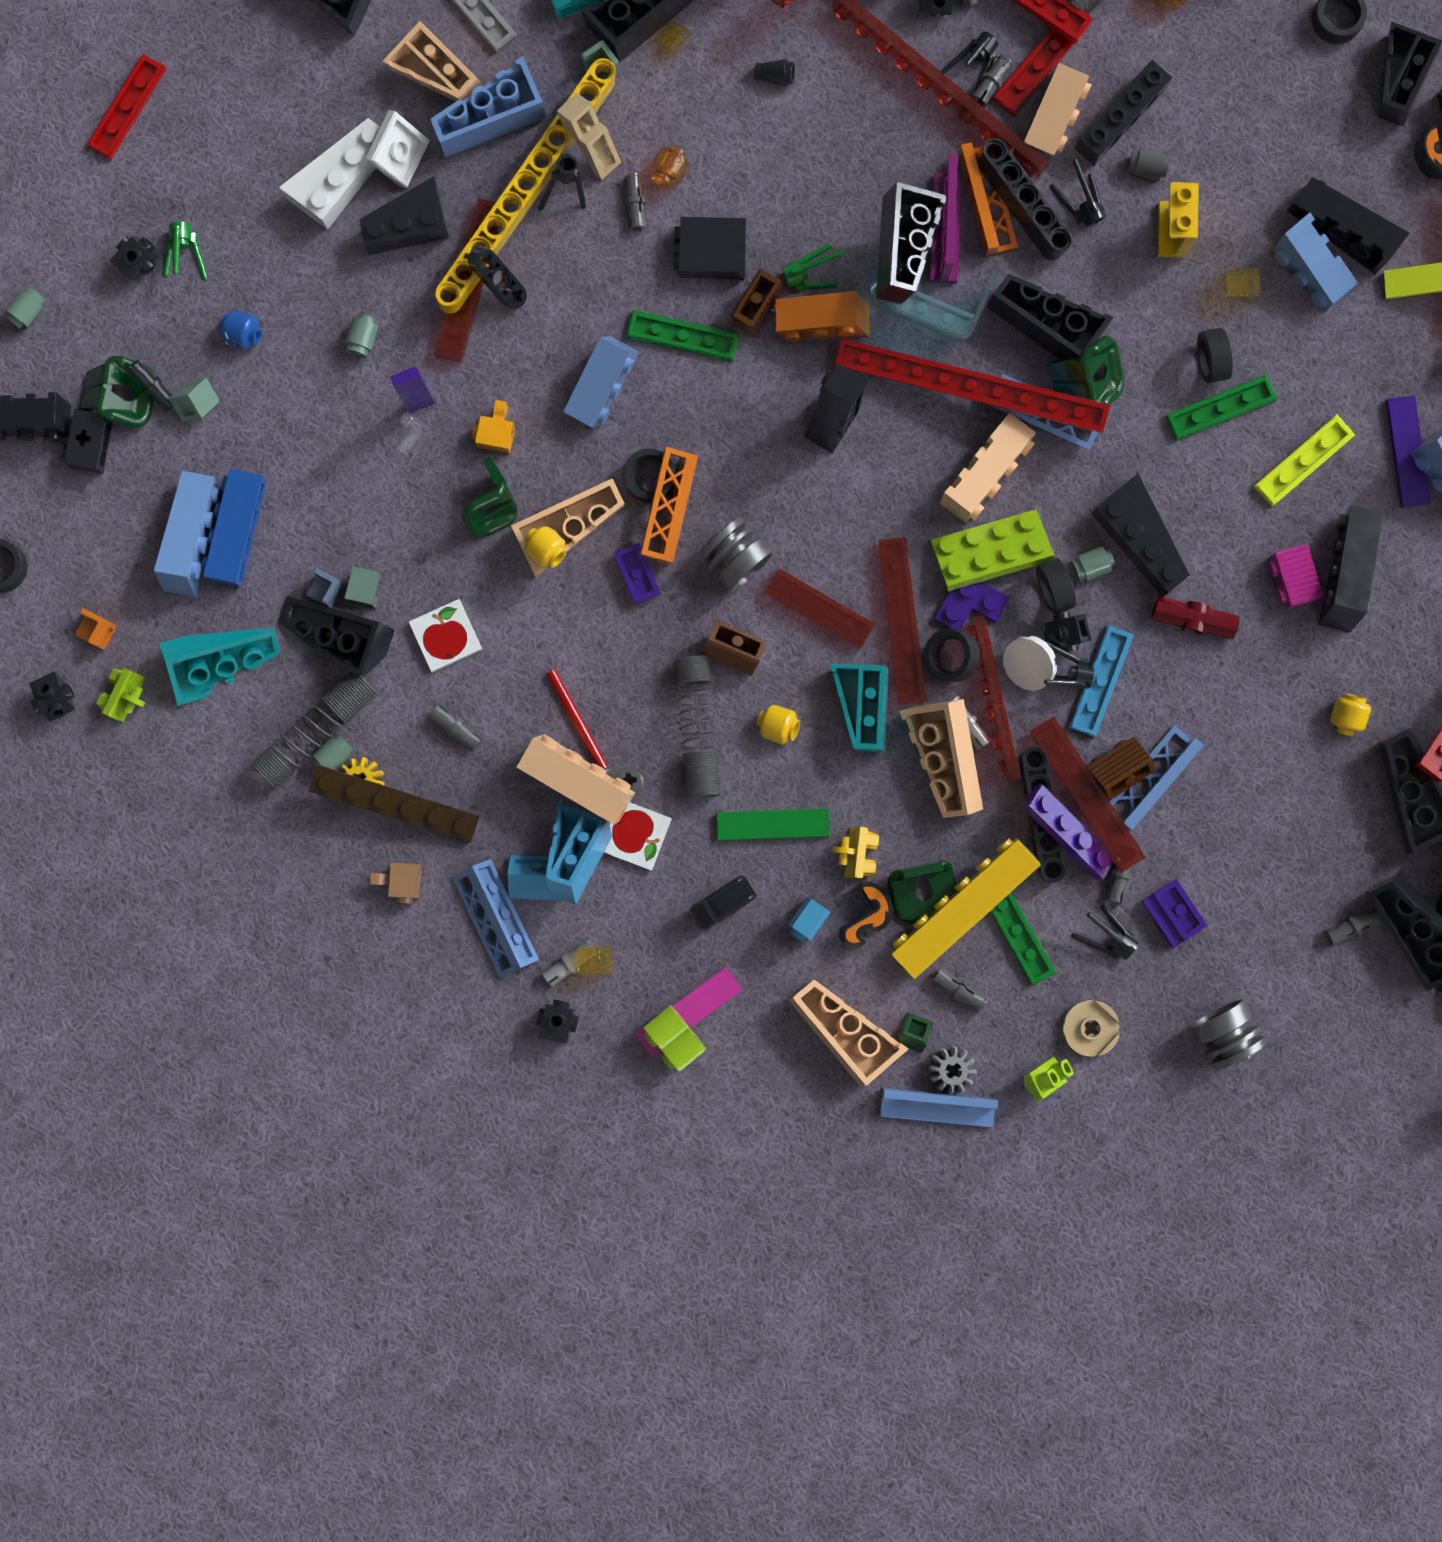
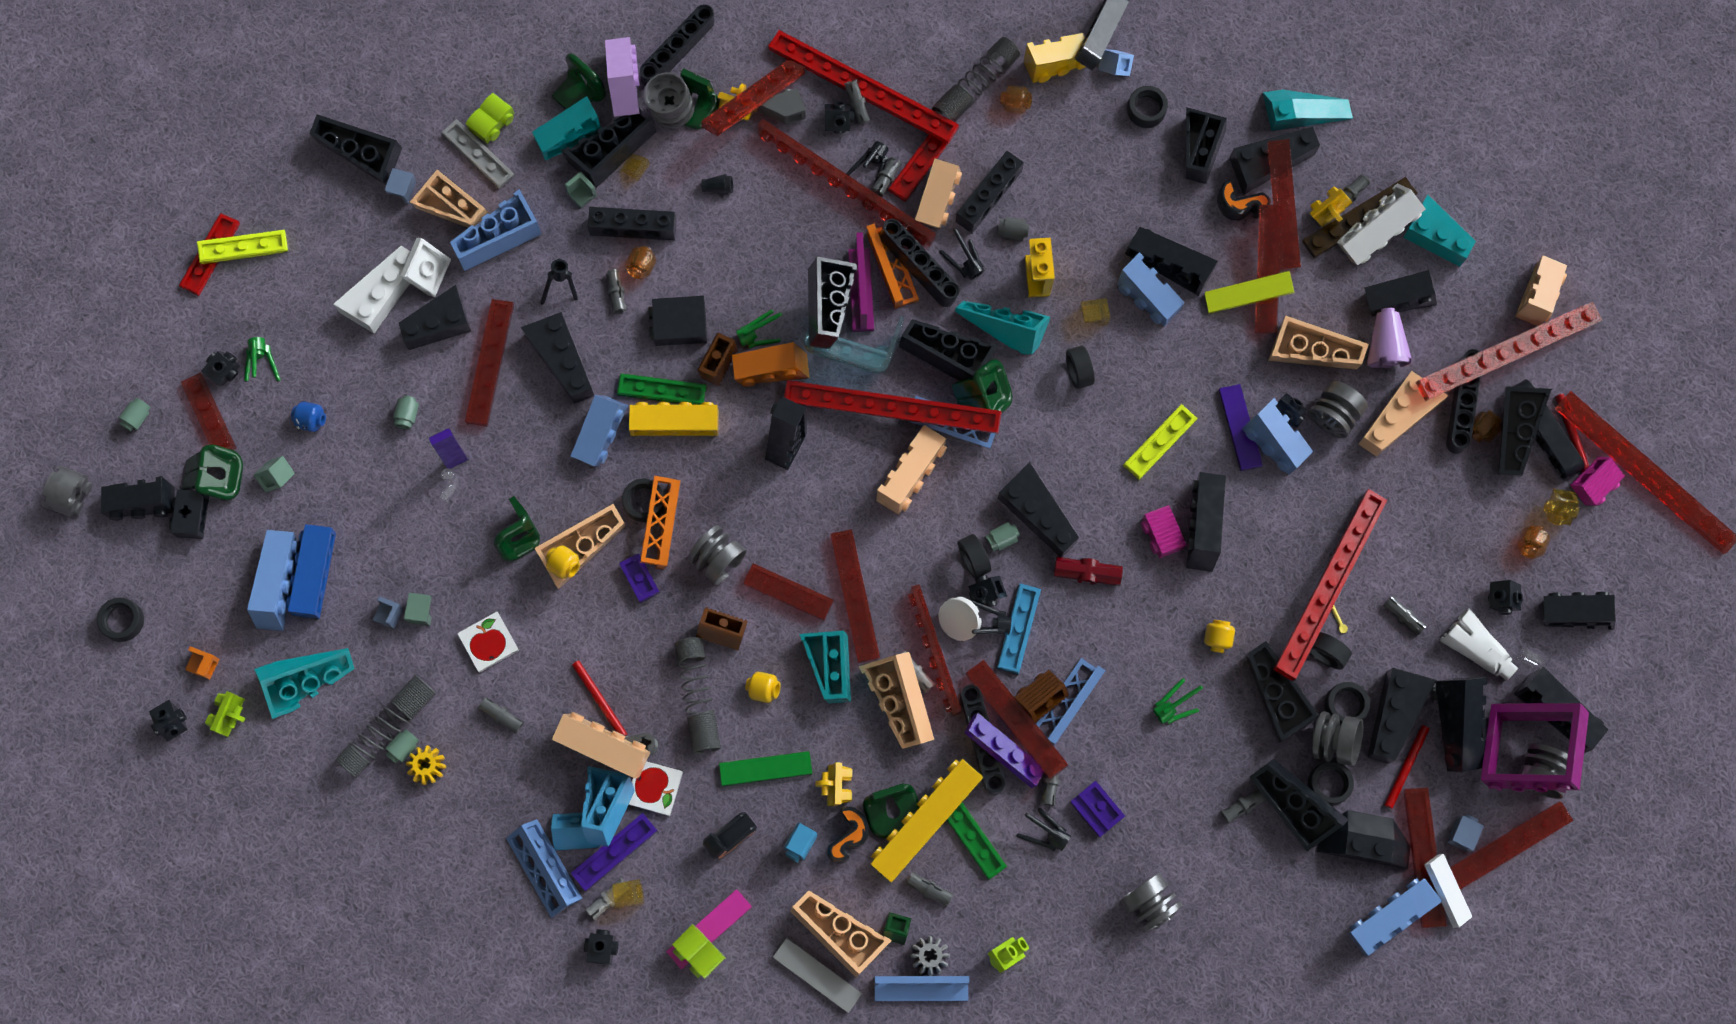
camera: 10 degrees left, 10 degrees down
(115, 312) = (207, 412): none -> clear red plate
(150, 384) = (238, 465): black pin -> none
(168, 100) = (242, 246): none -> neon yellow tile
(341, 637) = (403, 650): black wedge -> none
(372, 36) = (401, 184): none -> sand blue panel
(393, 803) = (454, 780): dark brown plate -> none
(403, 881) = (465, 844): medium nougat brick -> none
(487, 273) = (519, 357): black beam -> none
(495, 432) = (517, 477): light orange brick -> none
(522, 198) = (527, 296): yellow beam -> none
(555, 271) = (557, 350): none -> black wedge
(590, 135) = (575, 243): tan slope -> none
(591, 902) = (619, 849): none -> dark purple plate
(662, 114) = (632, 223): none -> black brick
(695, 375) = (673, 419): none -> yellow brick
(814, 1079) = (817, 975): none -> light grey tile
(933, 649) = (882, 615): black tyre -> none
(974, 597) = (905, 571): dark purple plate -> none
(992, 550) = (921, 533): lime plate -> none
(1107, 1028) = (1053, 908): tan plate -> none
(1134, 298) = (1017, 331): none -> teal wedge
(1221, 407) = (1090, 407): green tile -> none
(1273, 800) = (1167, 710): none -> green plant

